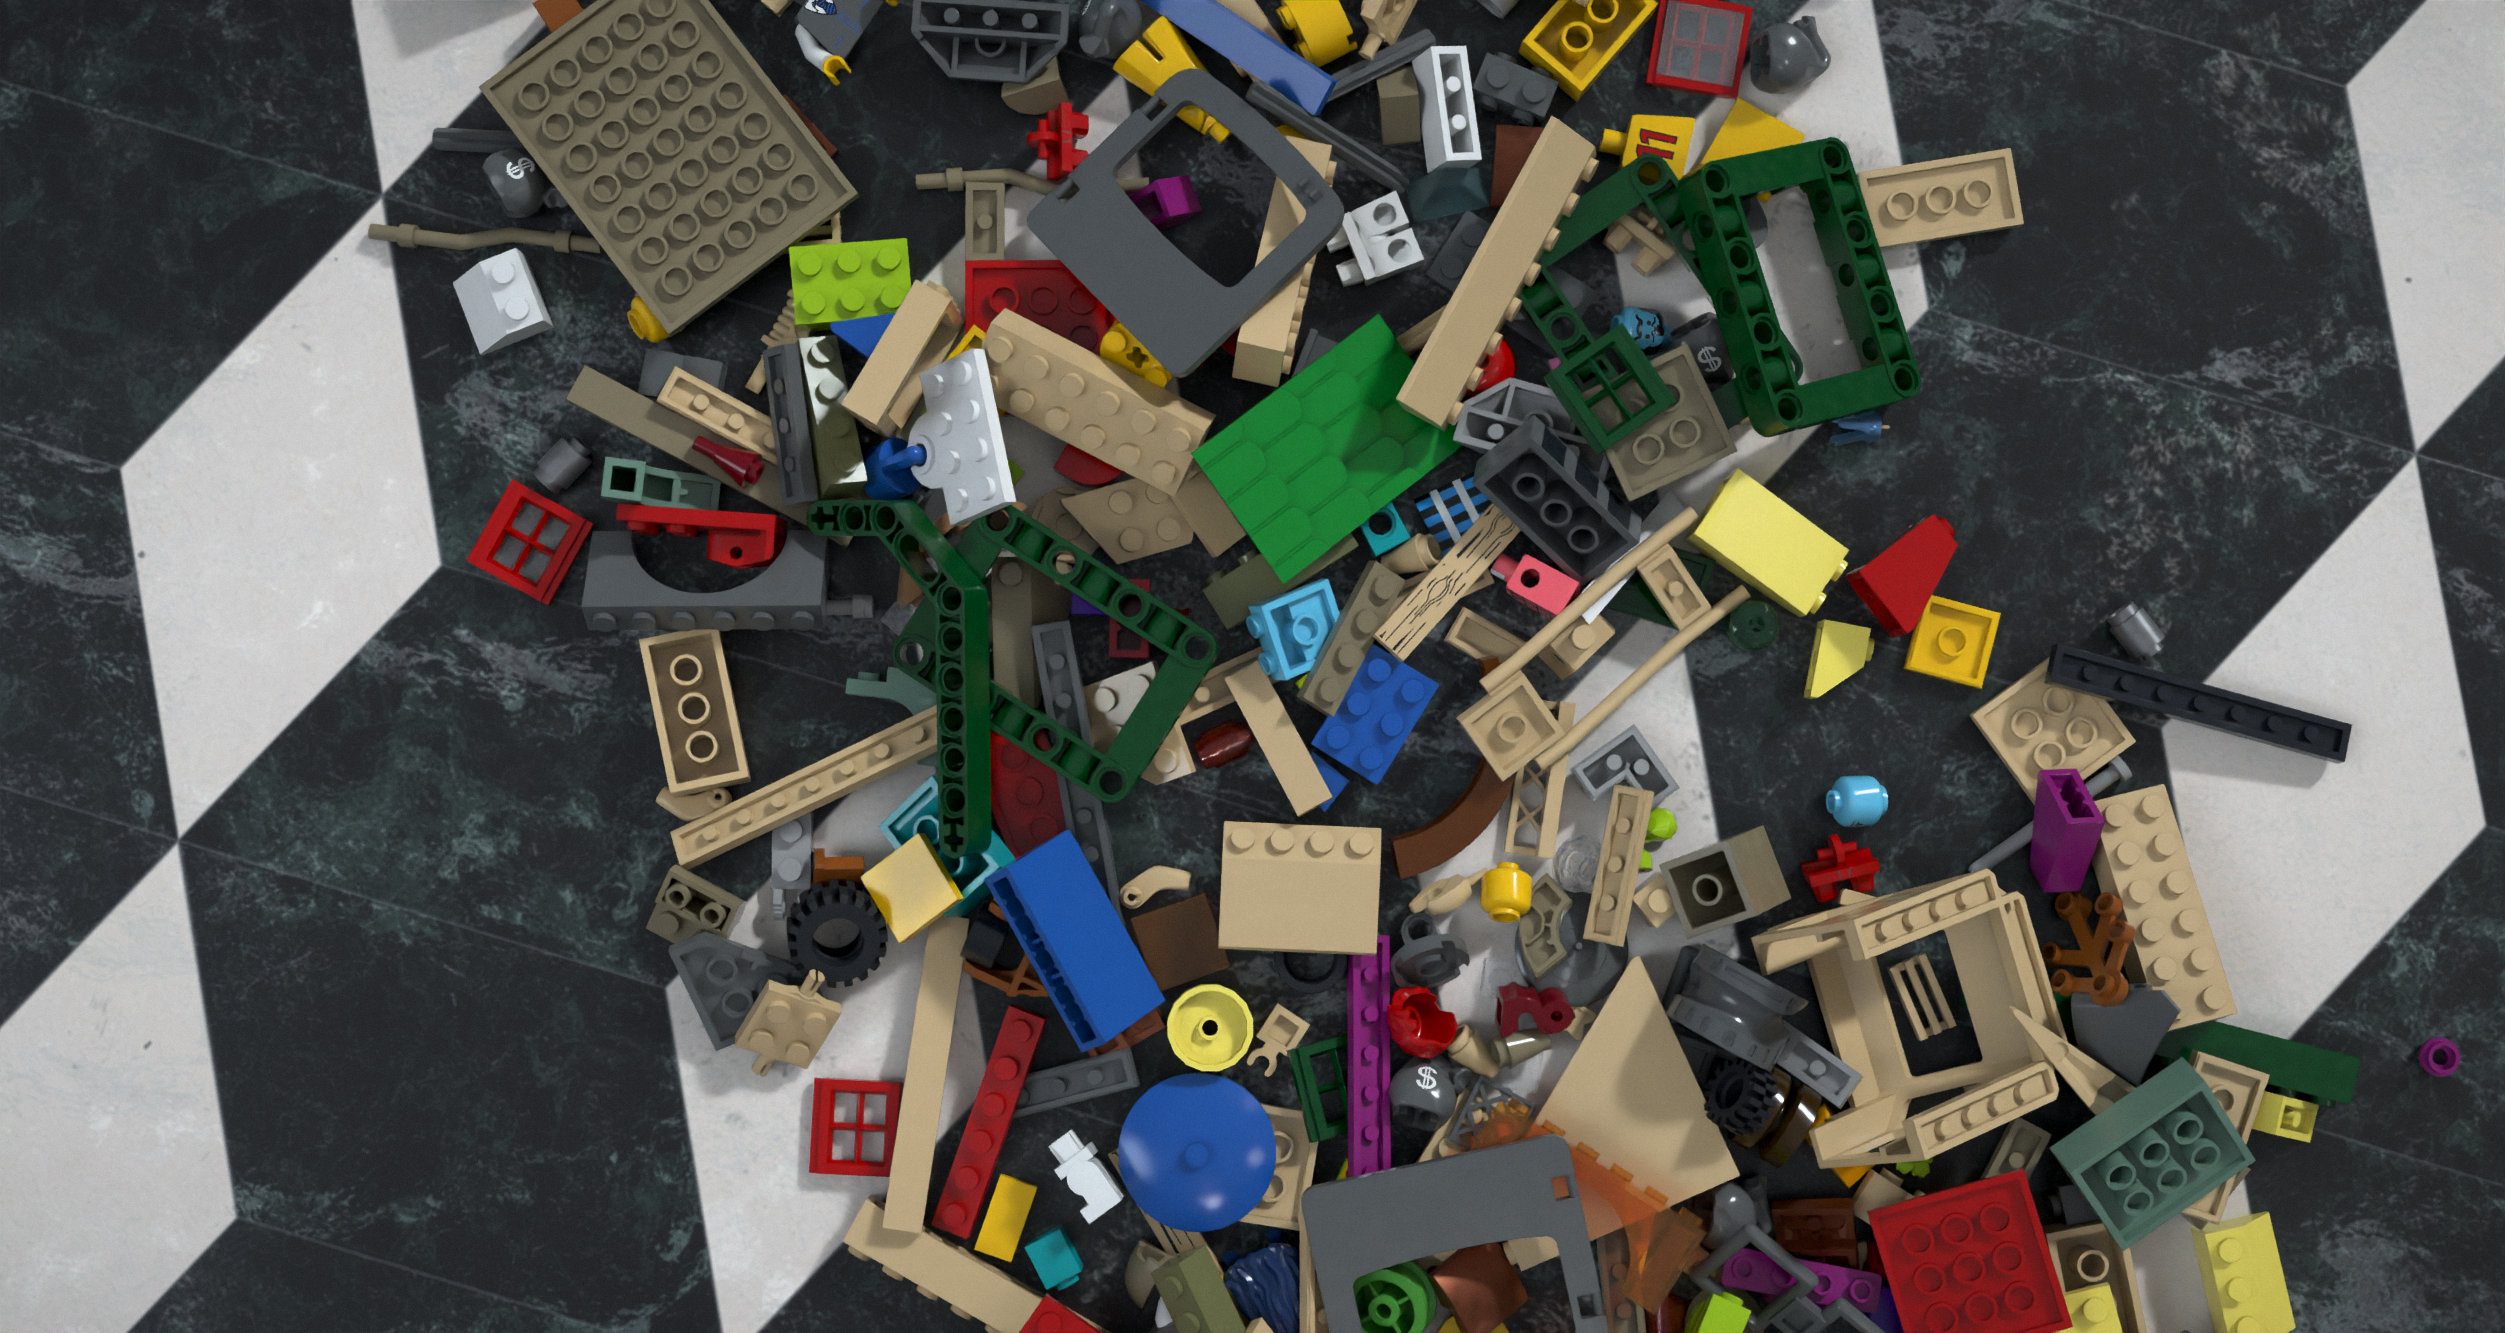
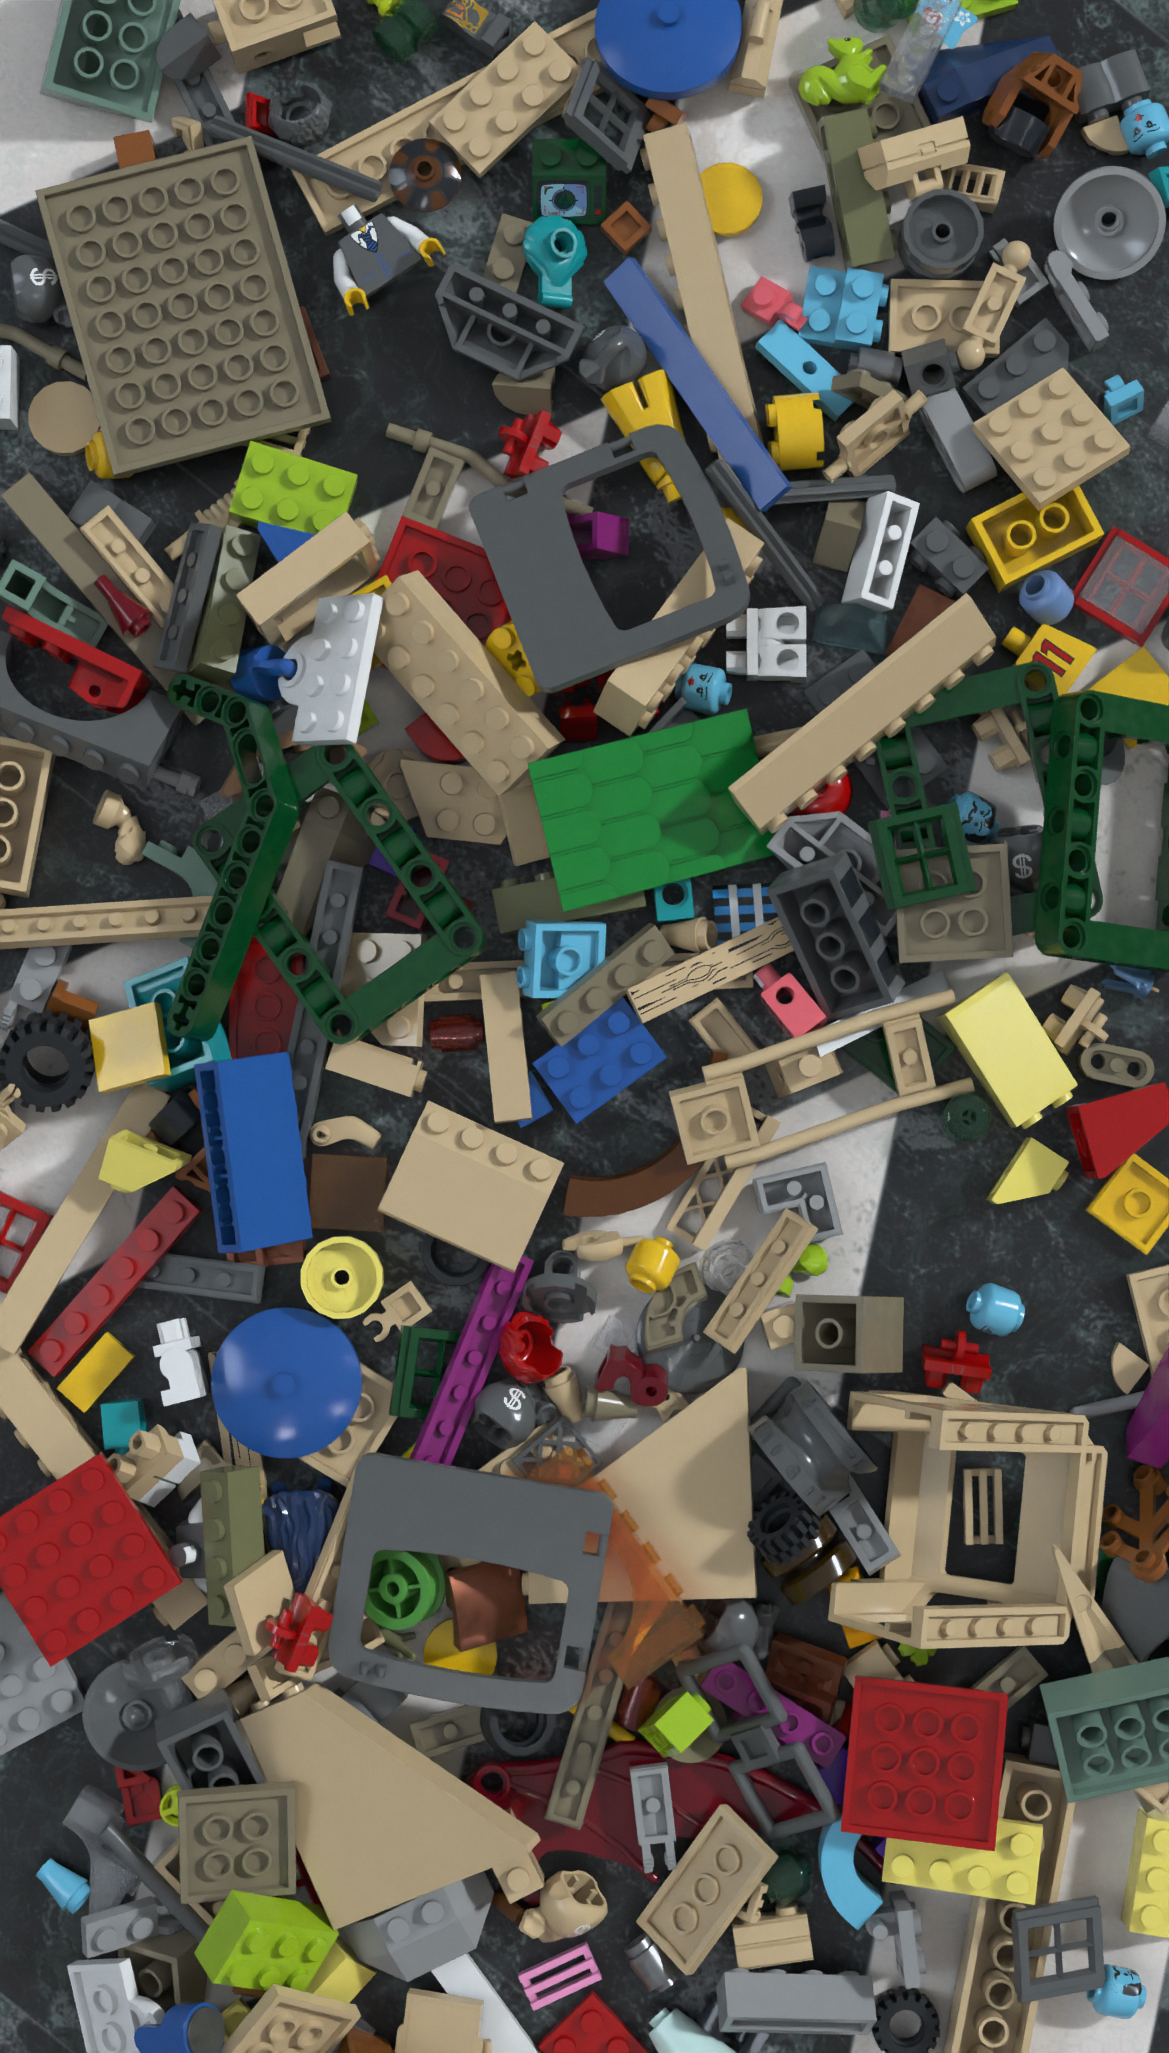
camera: 20 degrees right, 0 degrees up
(595, 298) = (63, 418): none -> tan tile
(828, 682) = (131, 837): none -> tan arm
(966, 995) = (137, 1161): none -> light yellow slope
(1102, 1283) = (154, 1464): none -> tan hips
(1160, 808) = (377, 1067): none -> tan window
(1219, 392) = (578, 722): none -> red tile
(1329, 311) = (703, 689): none -> medium azure head
(1625, 88) = (1046, 597): none -> medium blue head
(1824, 470) = (1085, 1007): none -> tan hips
(1876, 515) = (1115, 1065): none -> dark tan plate
(2006, 805) = (1126, 1367): none -> tan tile

